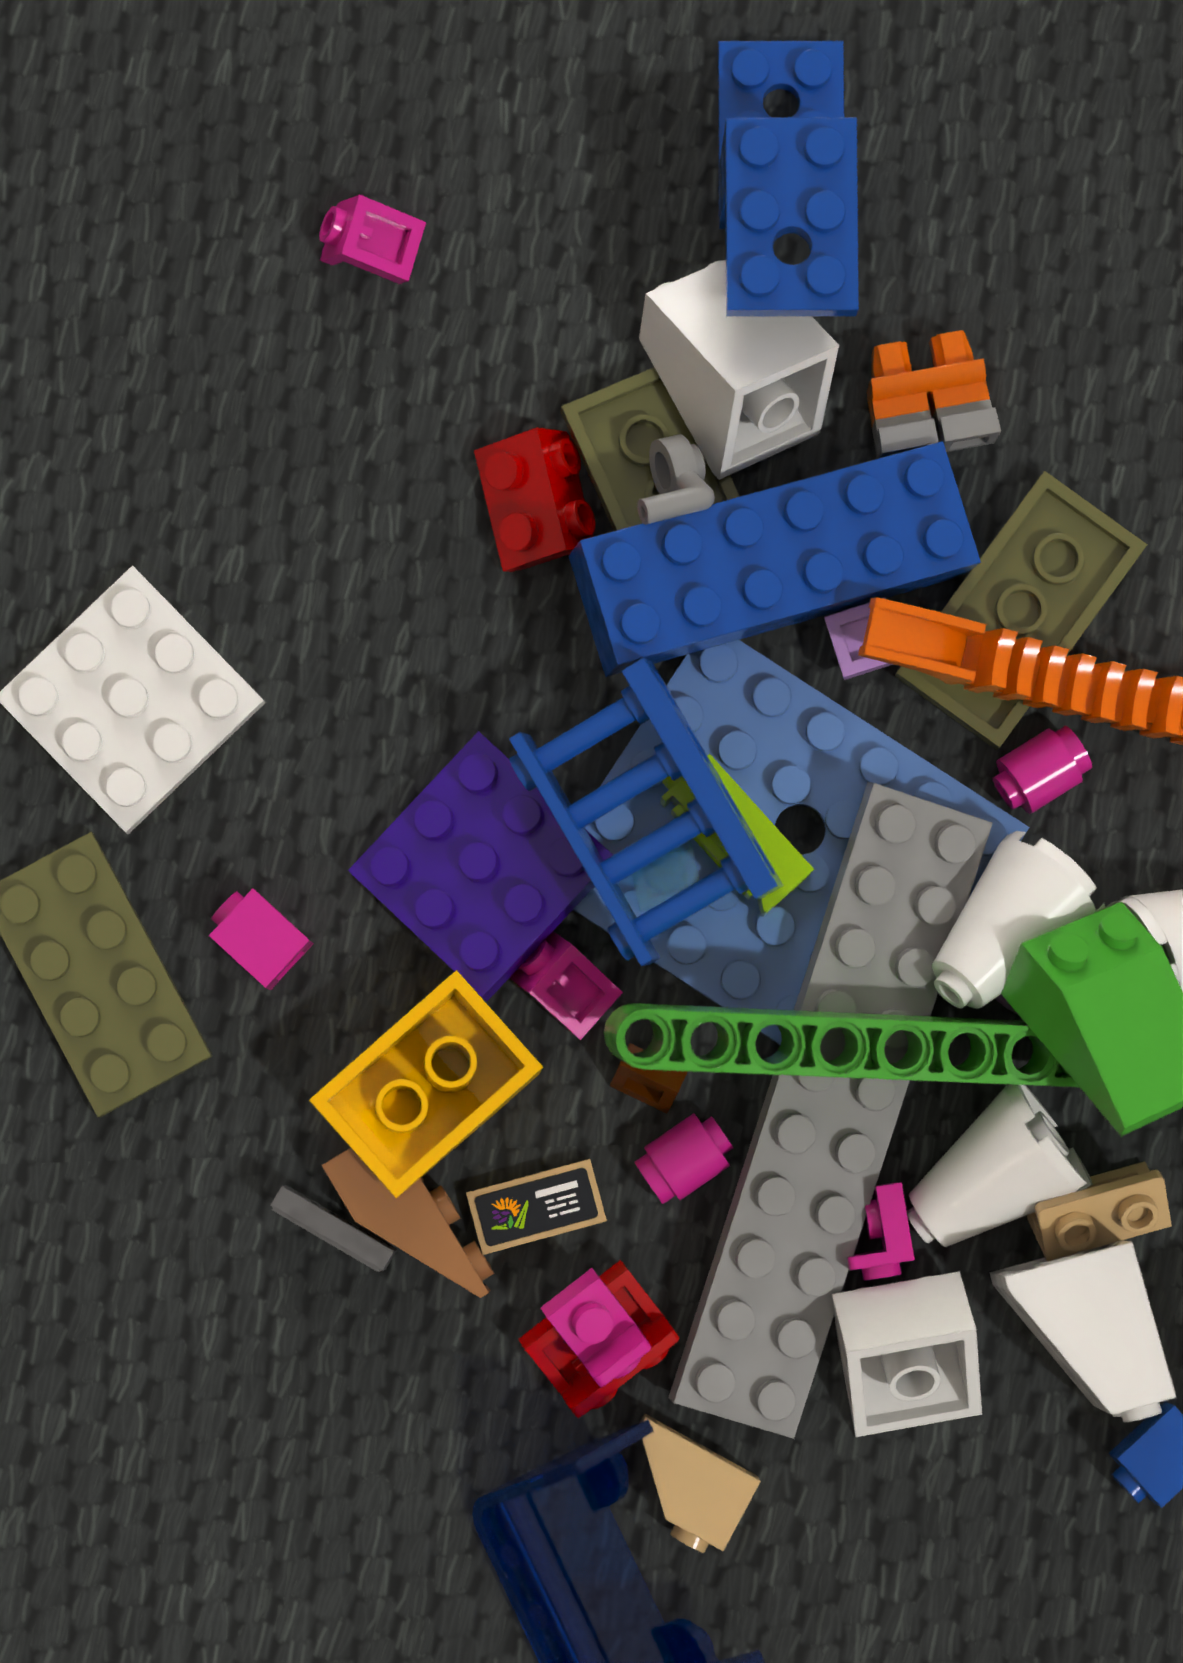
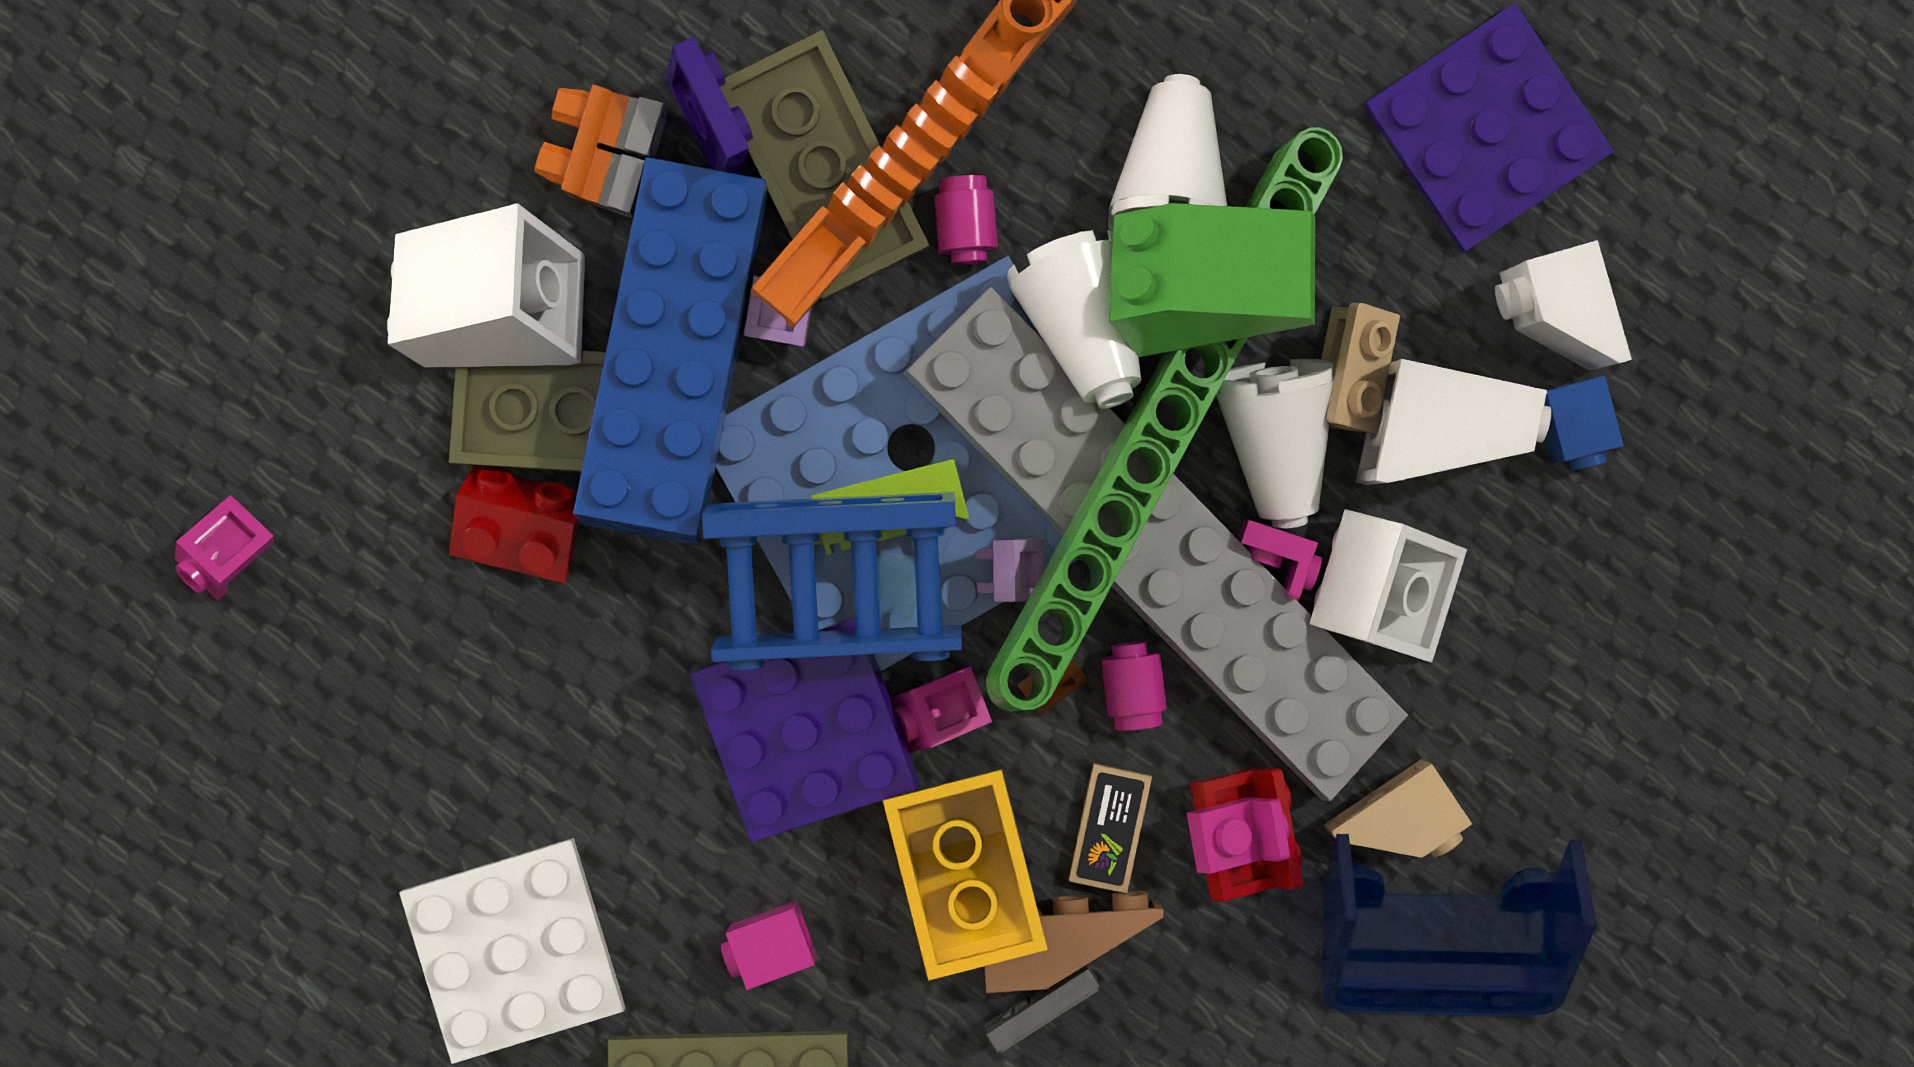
camera: 60 degrees left, 5 degrees up
(678, 477) = (560, 396): light grey plate -> none
(741, 981) = (1015, 568): none -> lavender tile
(787, 179) = (351, 171): blue bracket -> none
(1005, 491) = (716, 127): none -> dark purple plate

